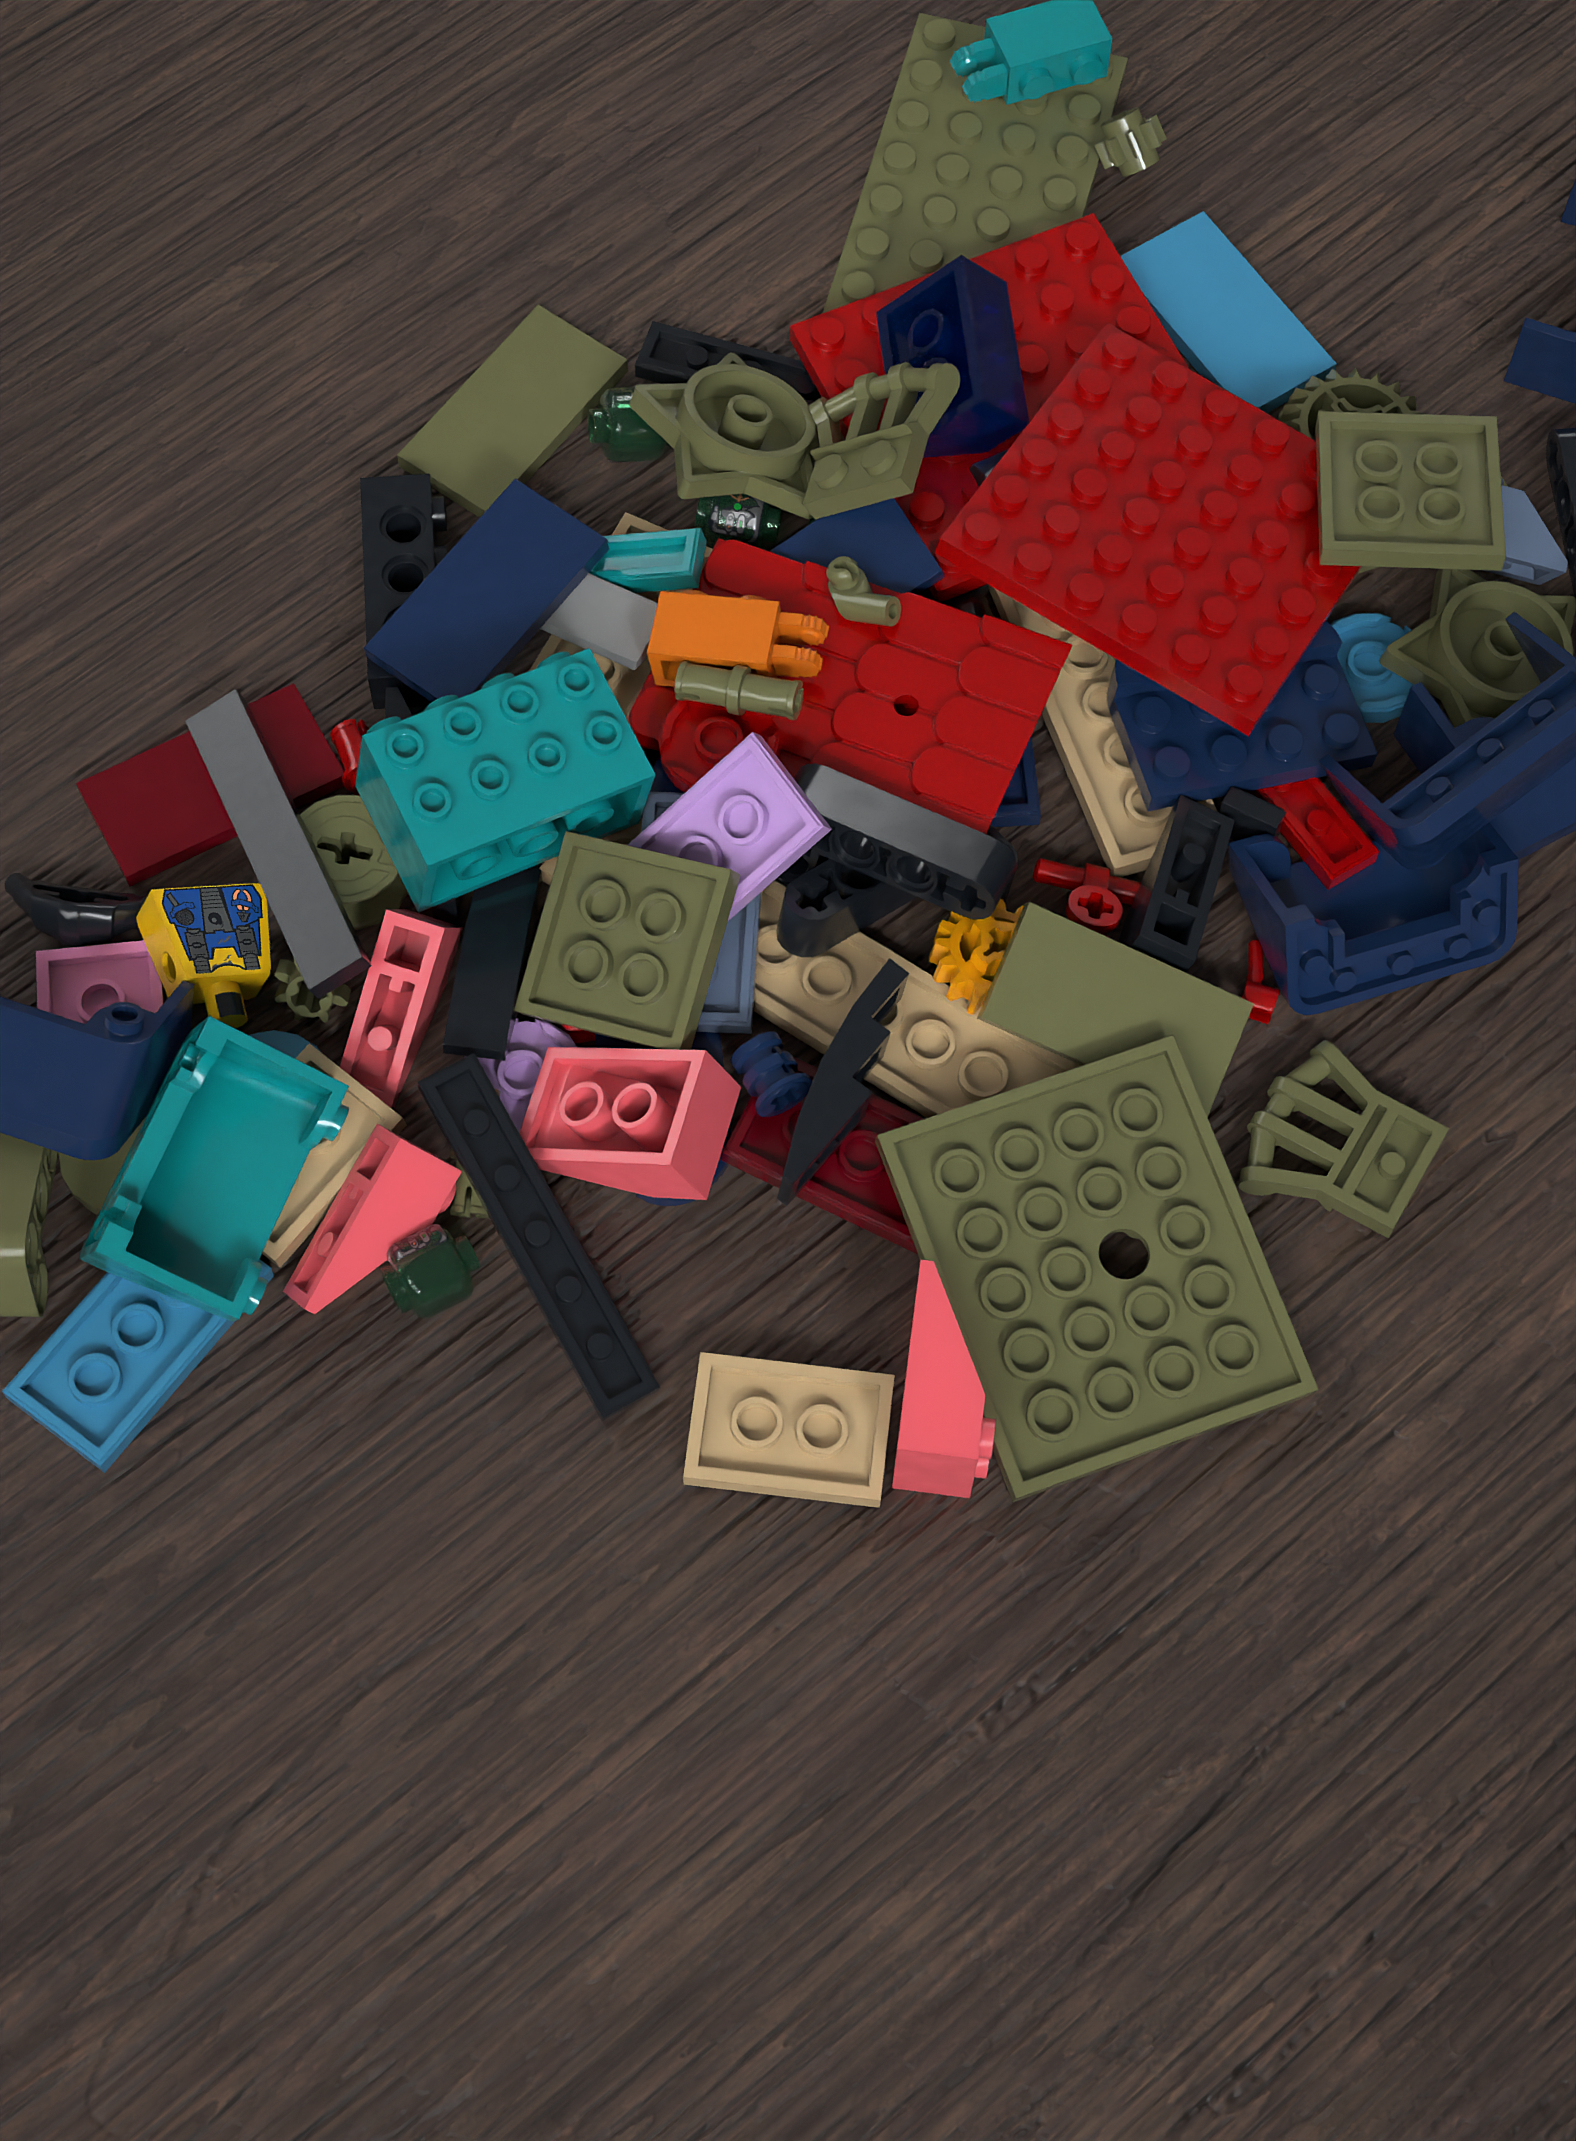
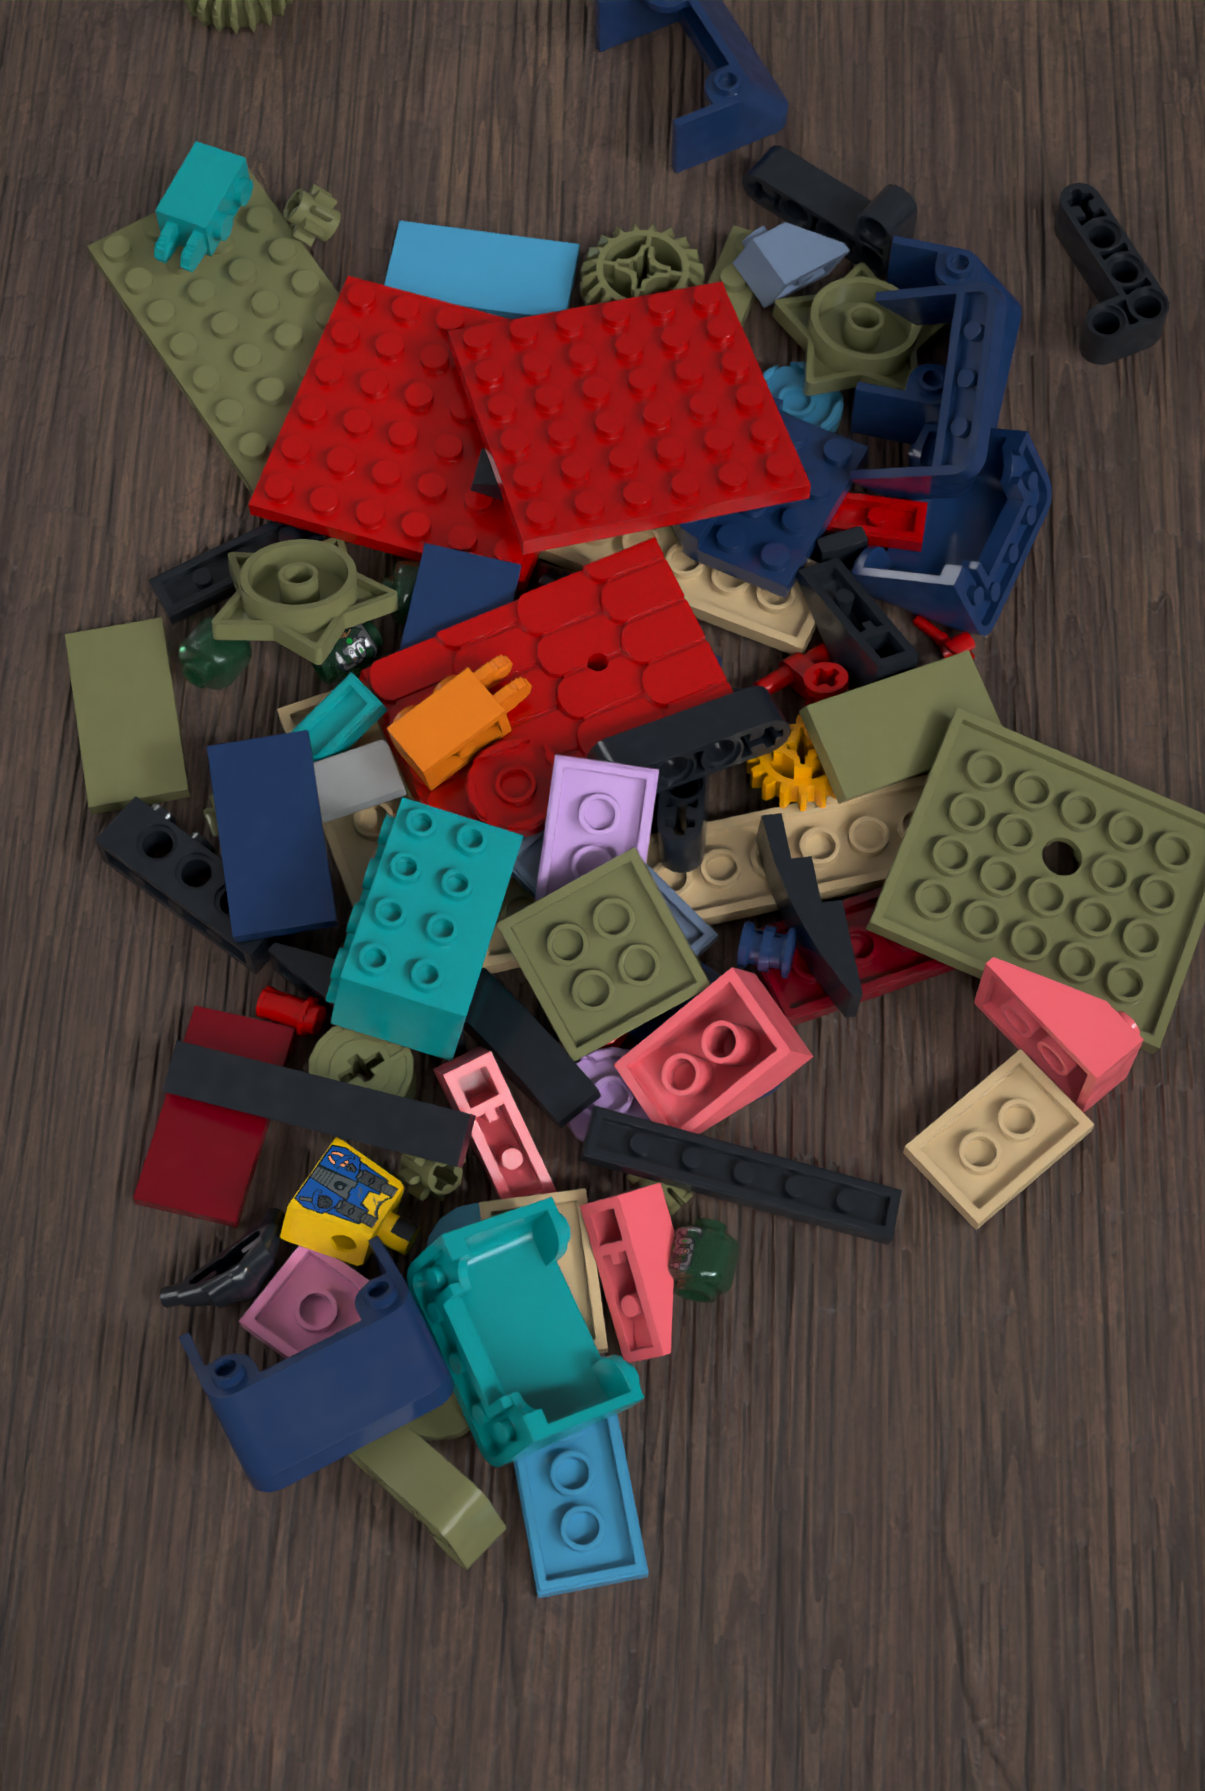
camera: 45 degrees left, 0 degrees up
(739, 690) = (503, 742): olive pin -> none
(855, 597) = (496, 626): olive arm -> none
(869, 462) = (417, 539): olive plate -> none
(964, 321) = (385, 438): clear blue slope -> none
(1376, 1167) = (1121, 669): olive plate -> none
(1409, 491) = (737, 275): olive plate -> none

